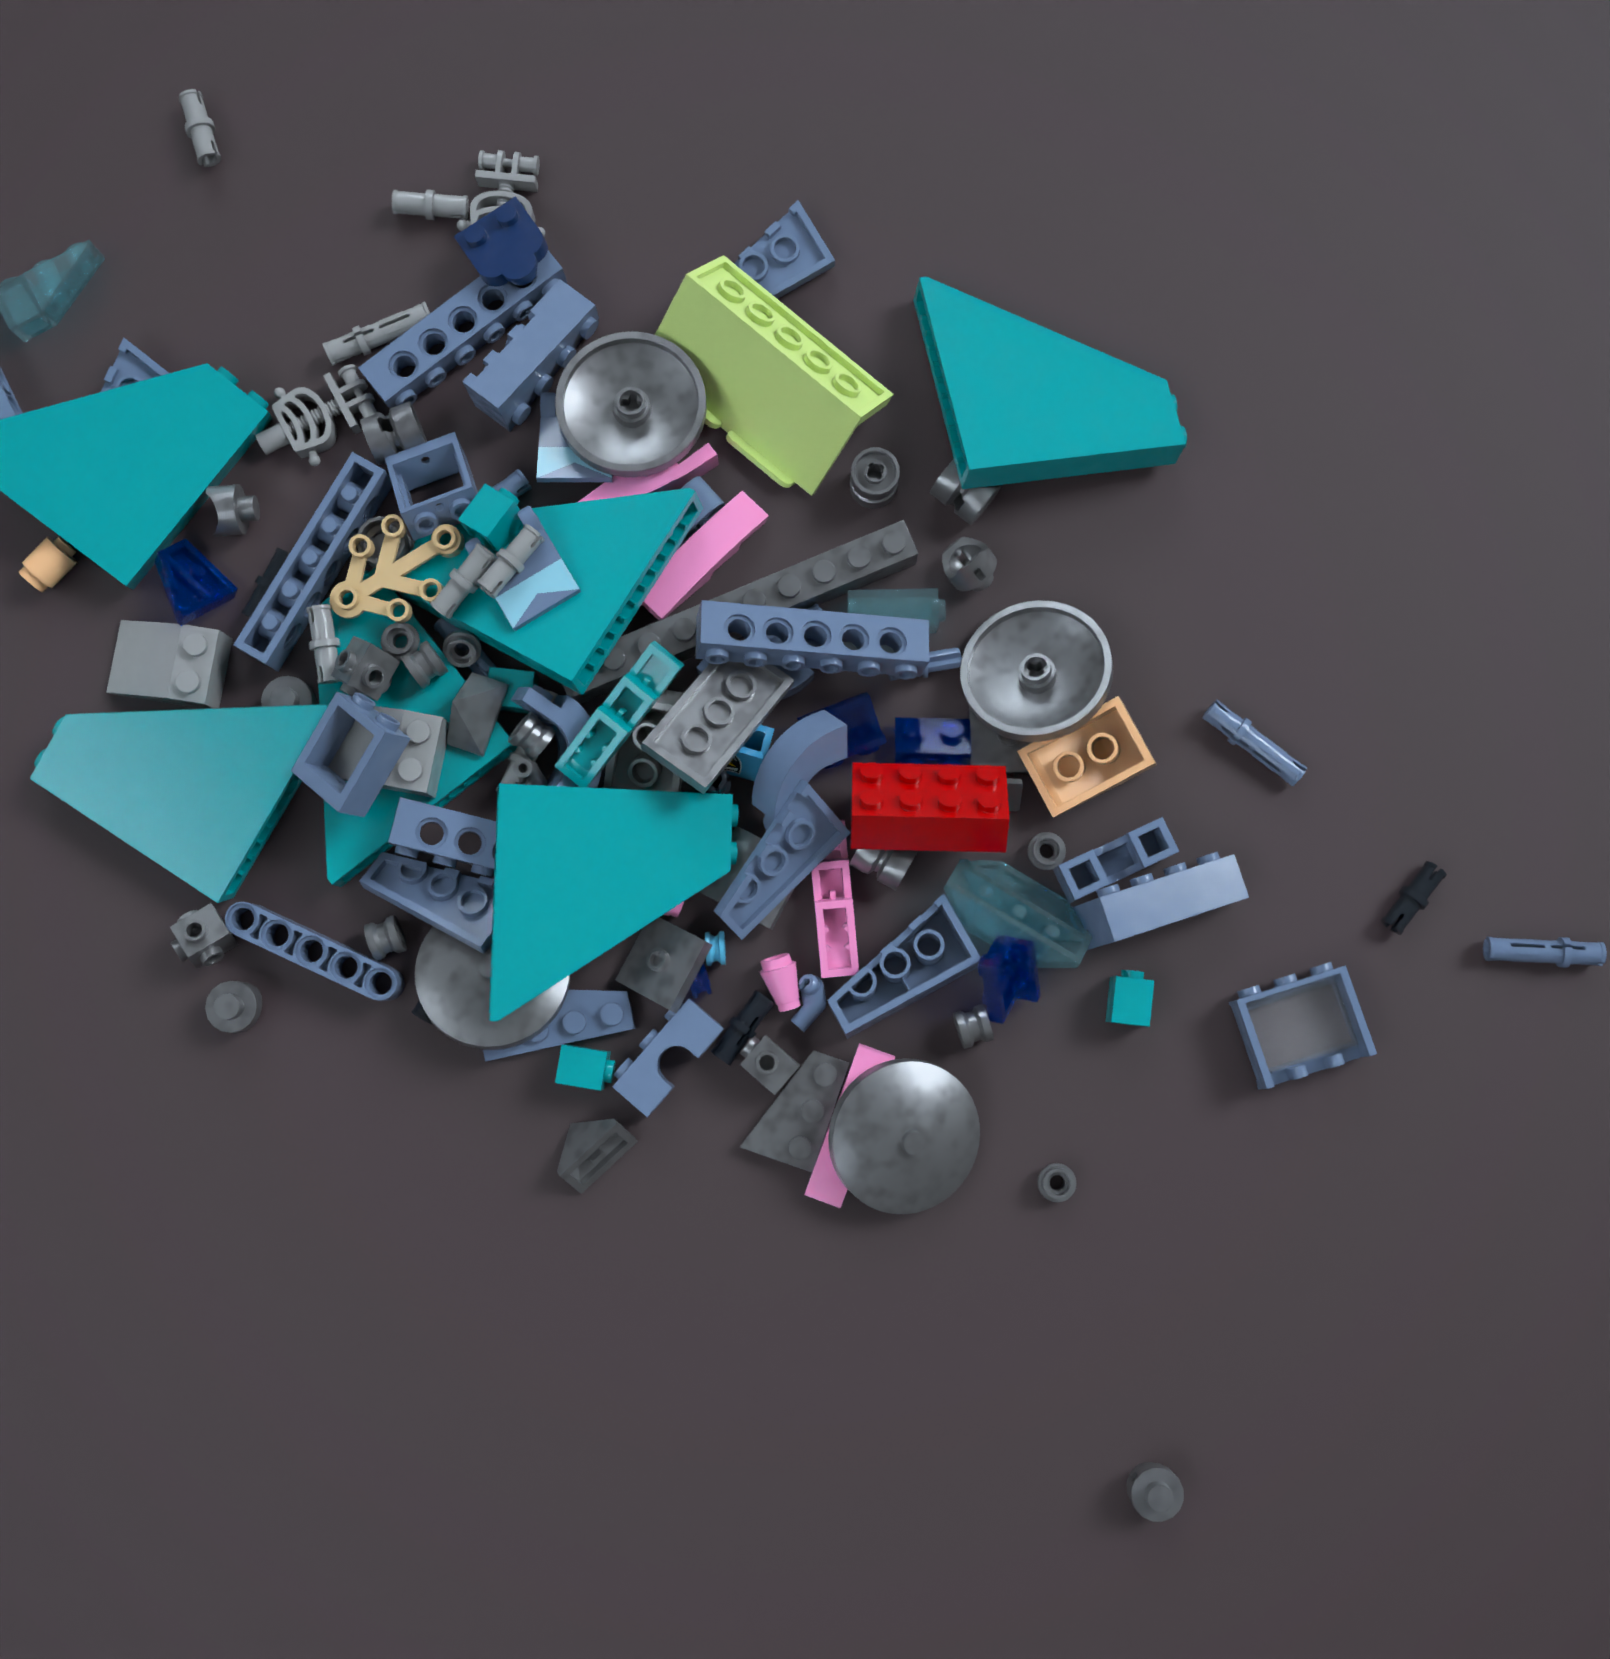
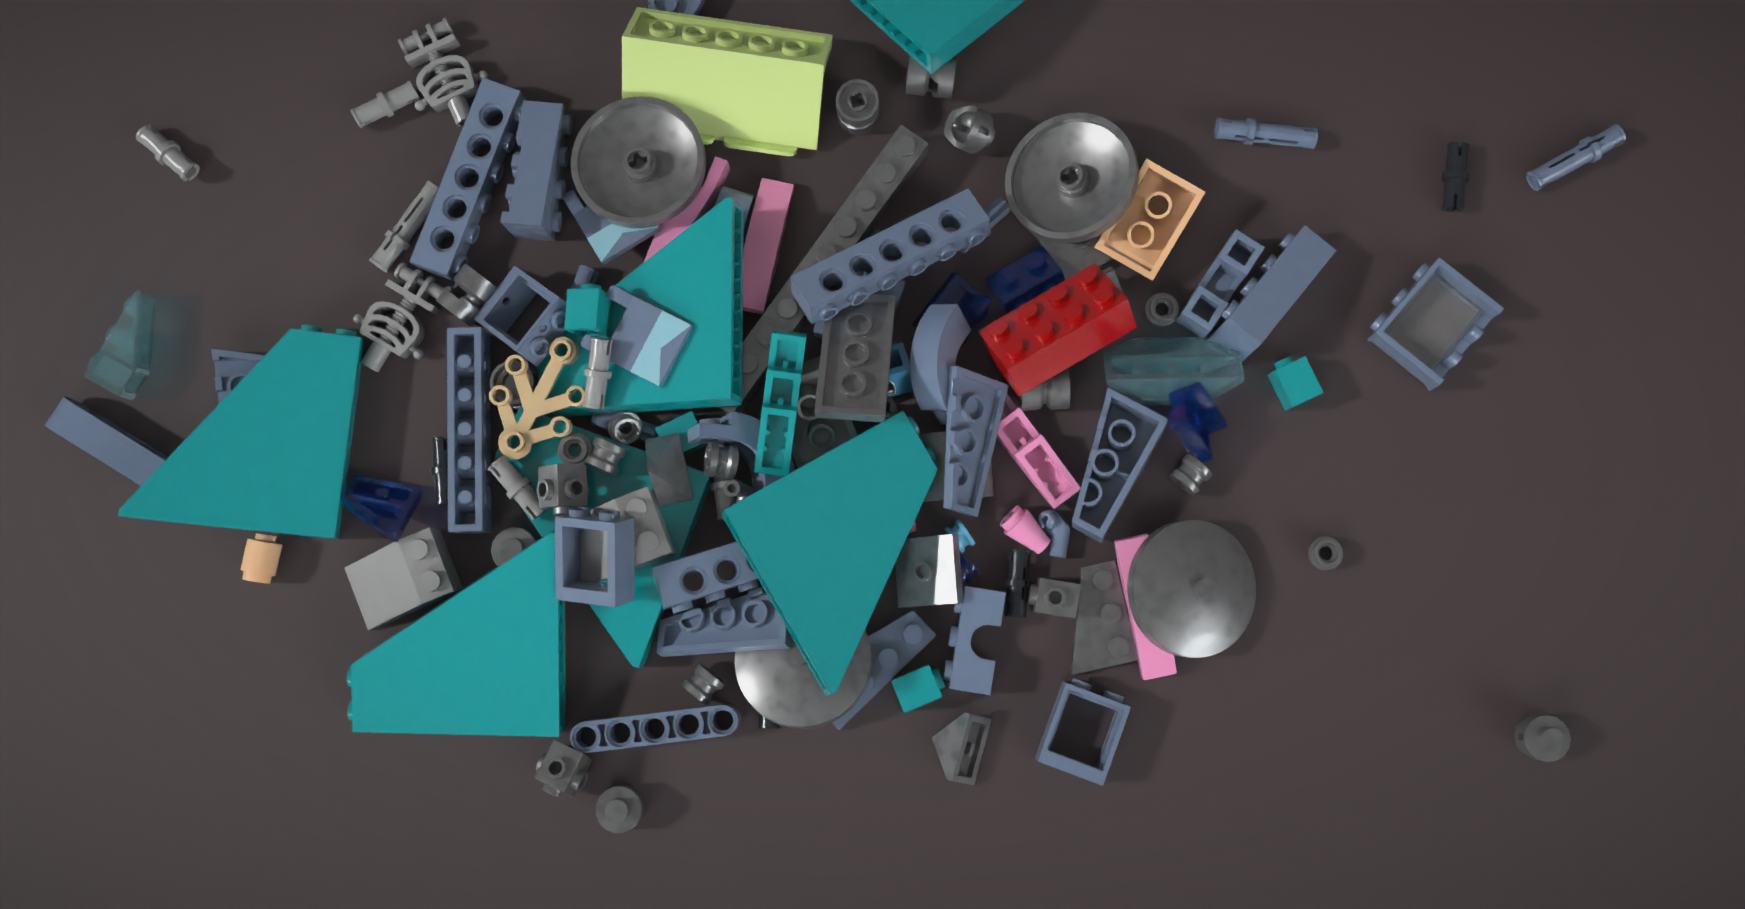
camera: 25 degrees left, 0 degrees up
(233, 509) = (380, 428): flat silver piece -> none
(504, 245) = (464, 100): dark blue plate -> none
(510, 561) = (625, 335): light grey pin -> none
(685, 1233) = (1070, 765): none -> sand blue window
(899, 603) = (935, 190): clear light blue brick -> none

